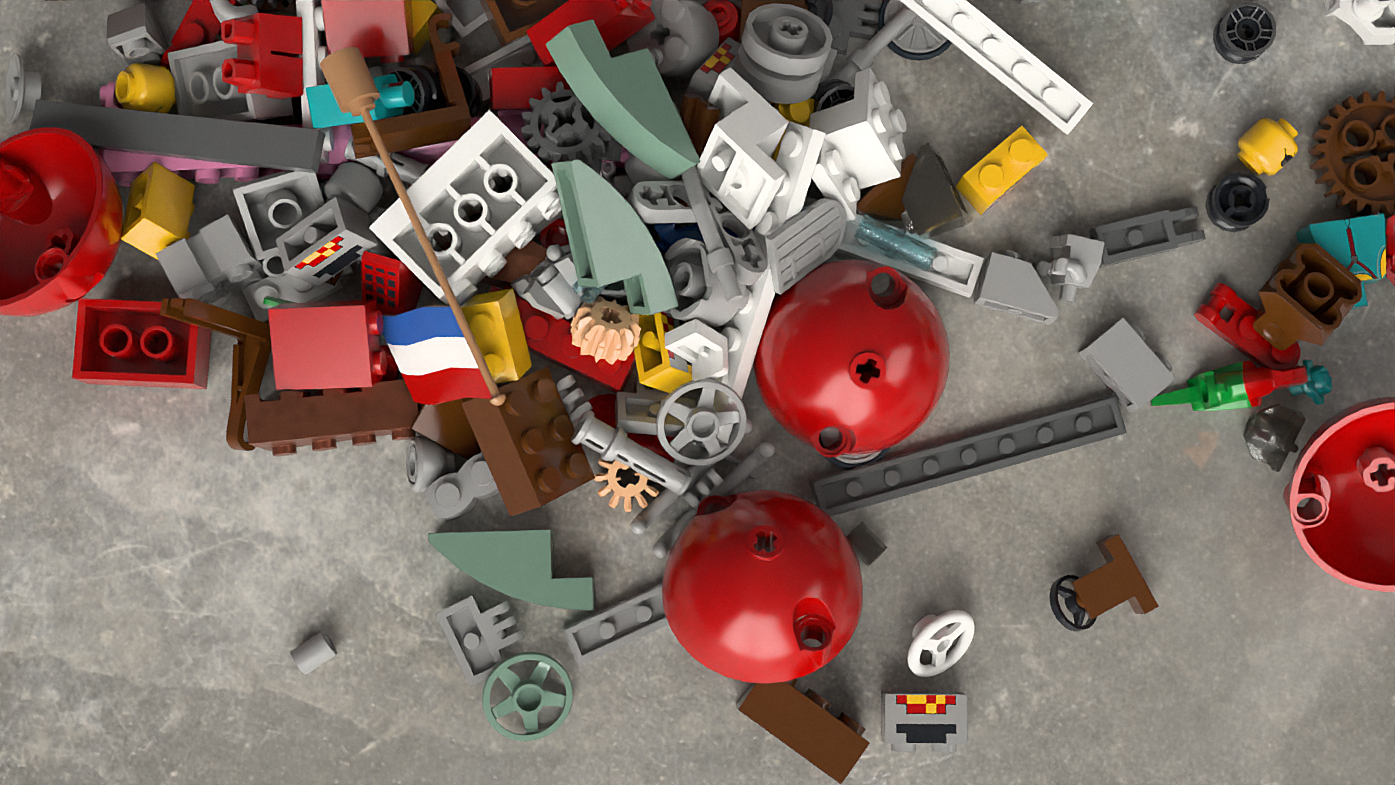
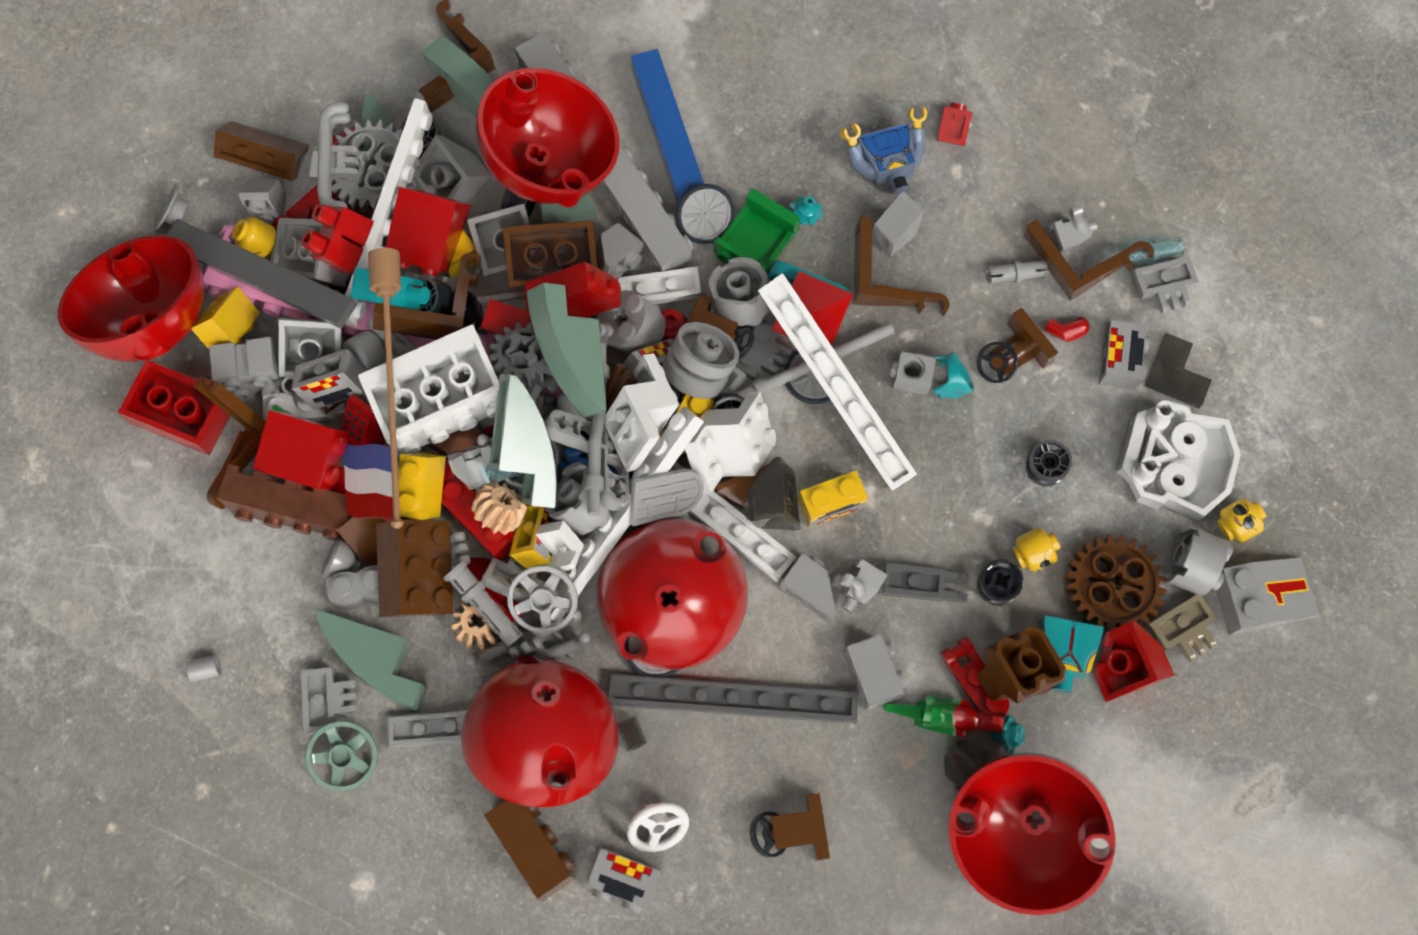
camera: 20 degrees right, 10 degrees down
(895, 242) = (734, 522): clear light blue pin -> none

